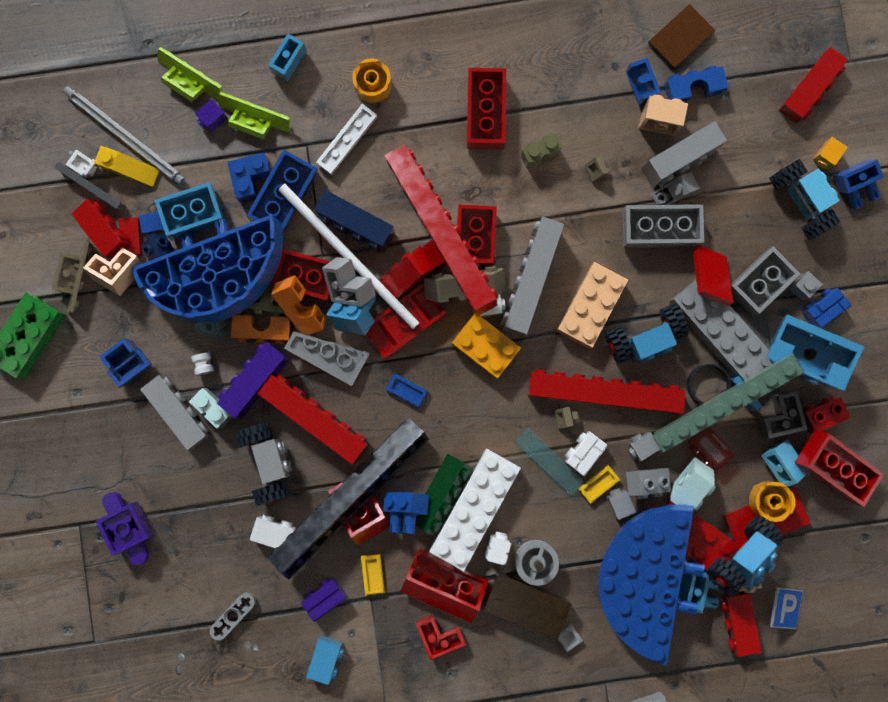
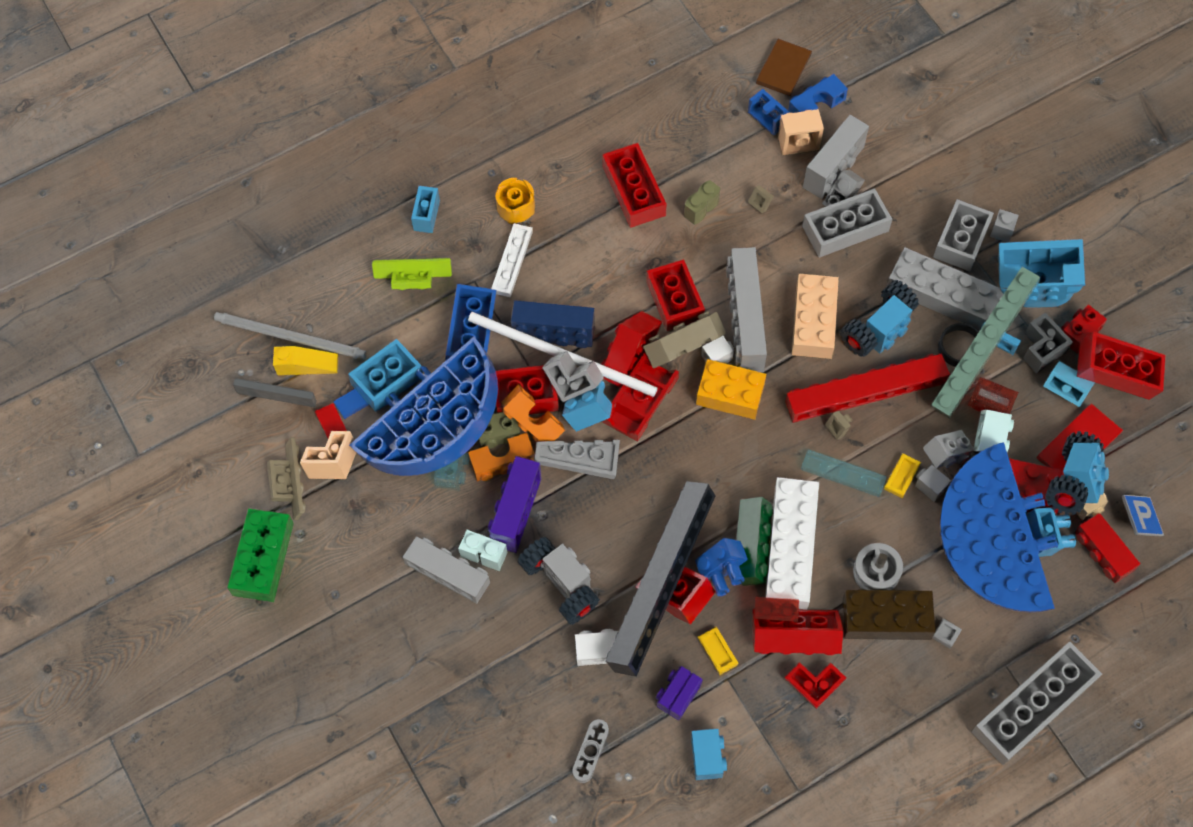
camera: 20 degrees left, 20 degrees down
(81, 164) = (259, 374): white bracket -> none
(100, 228) = (301, 423): red brick -> none
(124, 361) = (376, 537): blue plate -> none
(125, 528) = (441, 702): dark purple brick -> none
(156, 246) = (363, 418): dark blue brick -> none
(185, 78) = (333, 262): lime bracket -> none
(202, 364) = (454, 511): white wheel -> none
(210, 116) = (370, 286): dark purple brick -> none
(245, 172) = (426, 324): blue brick -> none
(313, 419) = (592, 517): red brick -> none
(406, 390) = (671, 462): blue tile -> none
(442, 232) = (642, 297): red brick -> none
(497, 548) = (833, 567): white brick -> none
(585, 453) = (875, 449): white brick -> none
(643, 446) = (927, 421): light grey brick -> none
(712, 275) = (914, 244): red tile -> none
(760, 501) = (1074, 415): light orange brick -> none
(811, 196) = (968, 148): brick -> none
(813, 85) = (922, 62): red brick -> none
(826, 308) = (1035, 230): blue brick -> none
(830, 153) = (967, 110): light orange brick -> none
(858, 176) = (1005, 116): blue brick -> none

